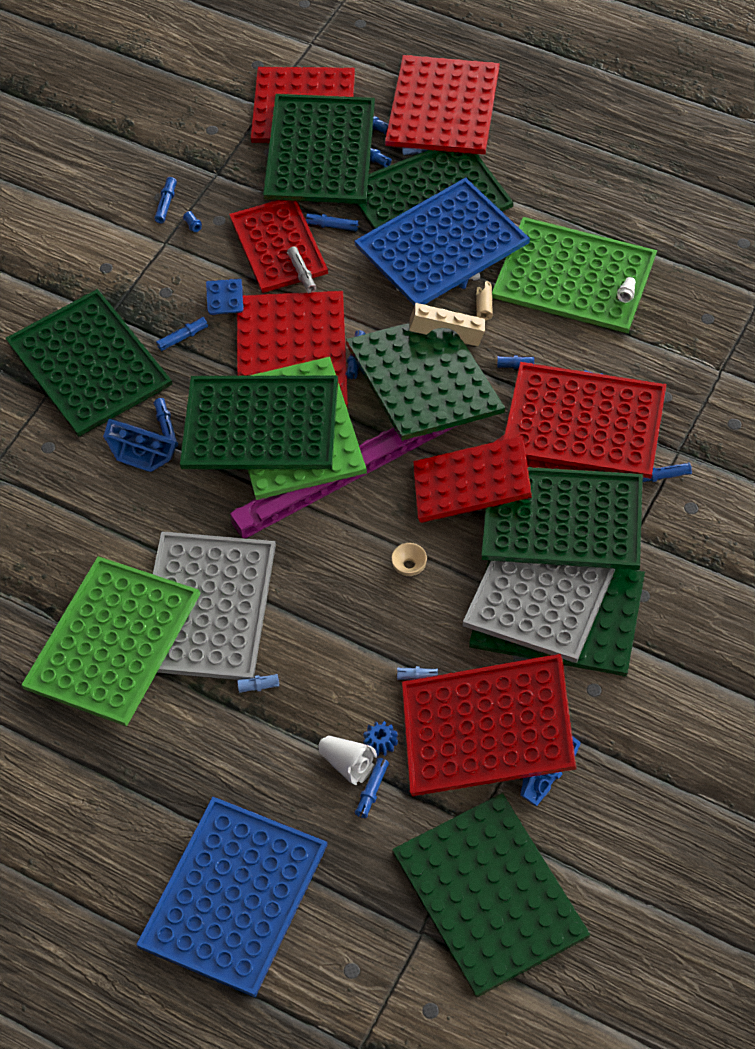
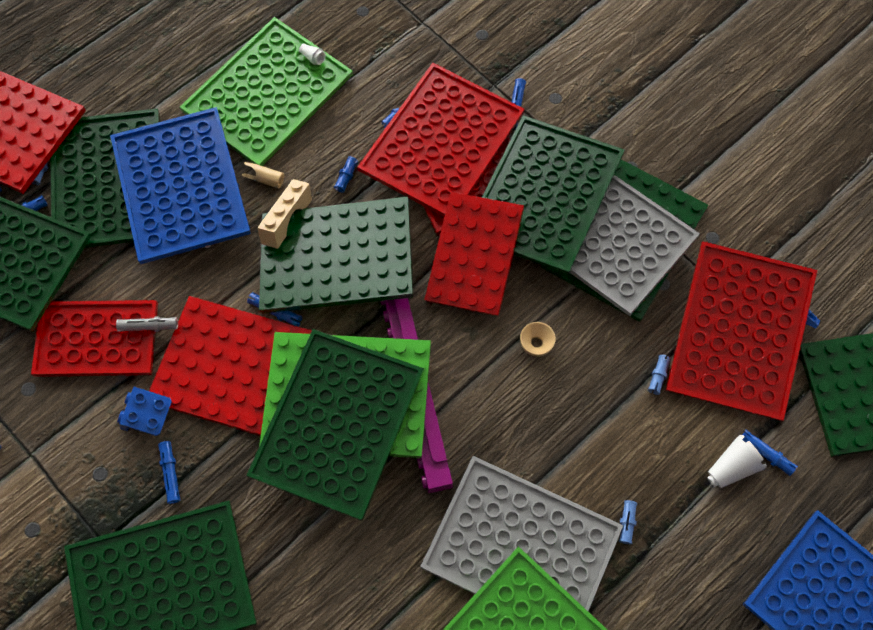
camera: 75 degrees left, 10 degrees up
(138, 446) = (303, 557): blue wedge -> none
(163, 417) = (280, 523): blue pin -> none
(194, 224) = (25, 415): blue pin -> none
(332, 222) = (89, 283): blue pin -> none
(387, 736) = (728, 429): blue gear -> none

